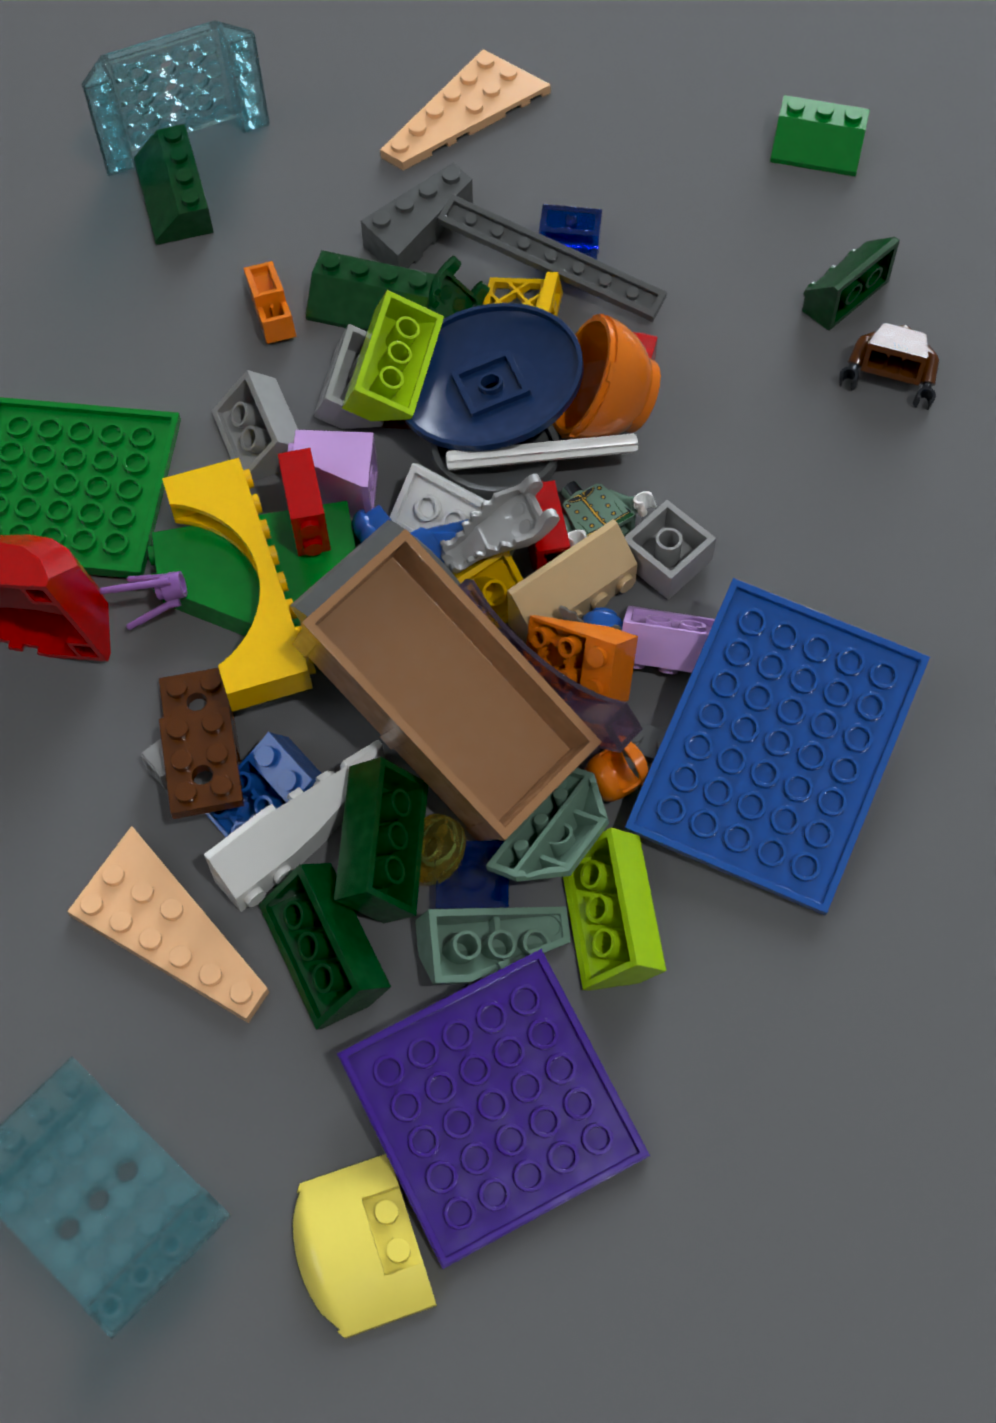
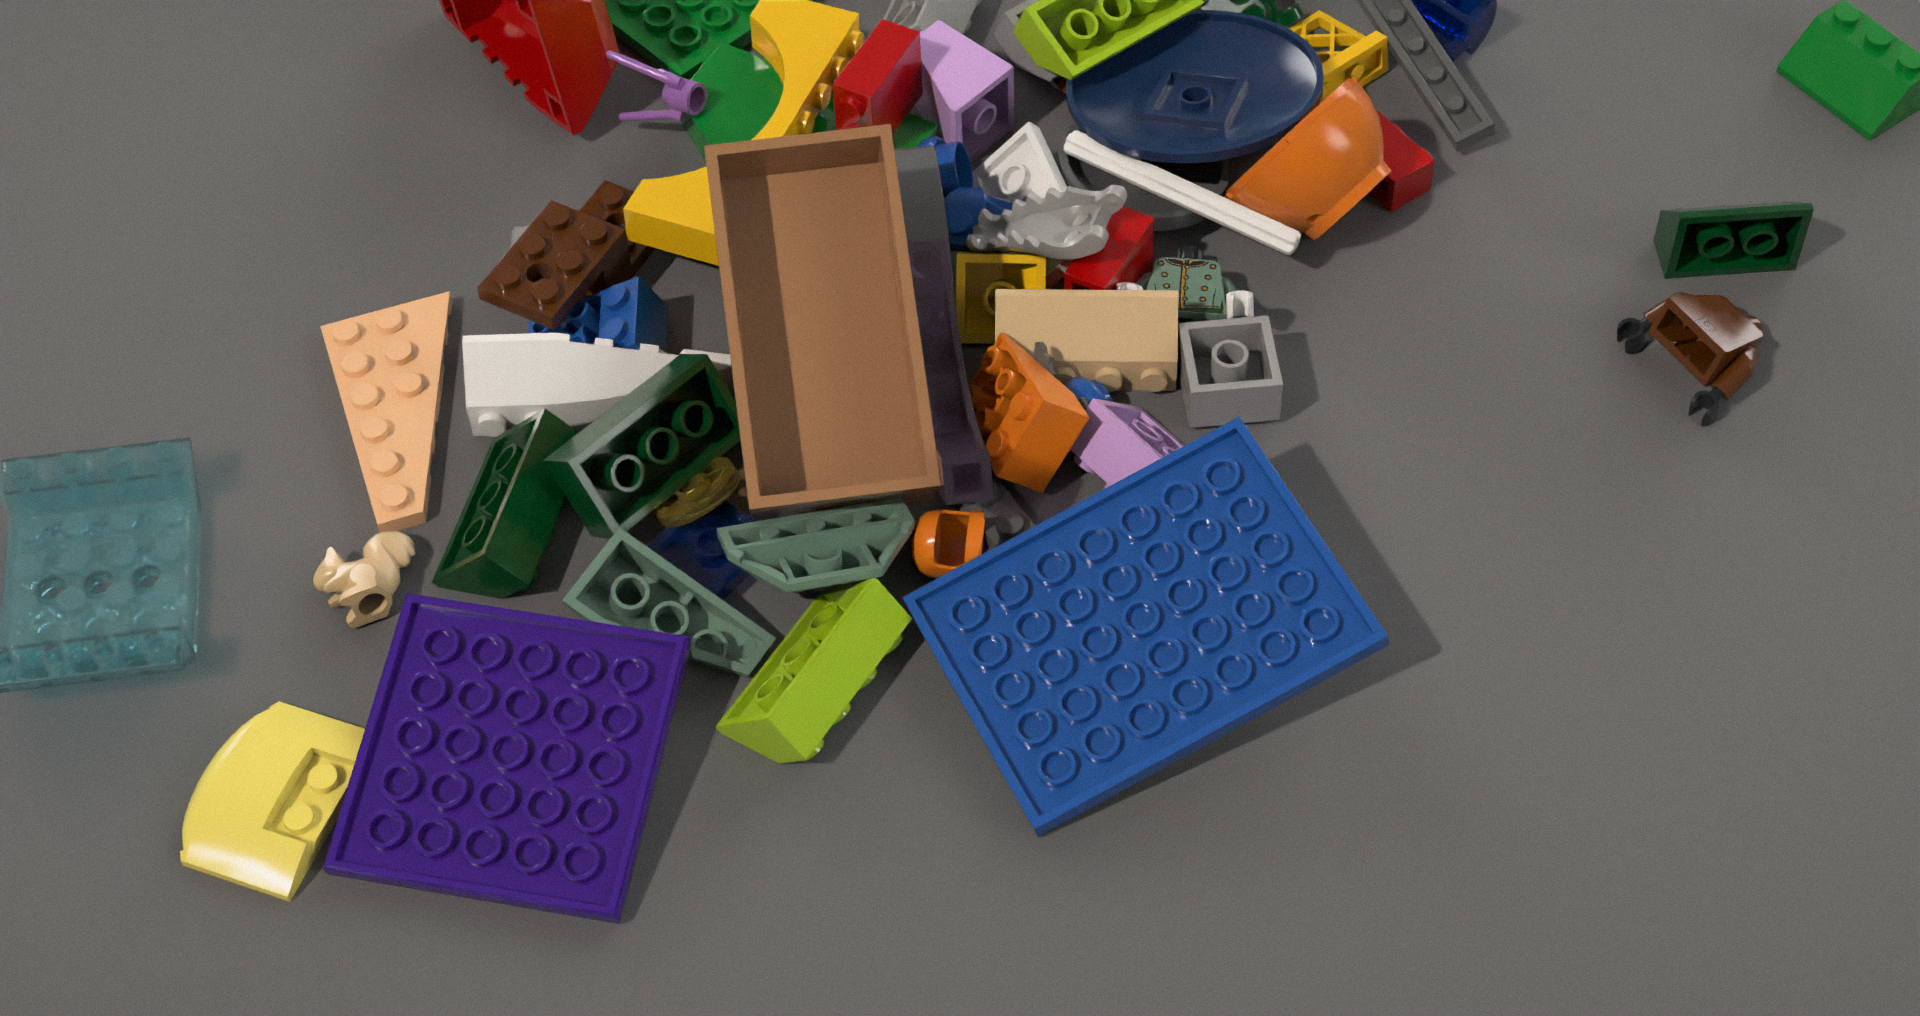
camera: 40 degrees right, 10 degrees down
(281, 1060) = (367, 582): none -> tan animal

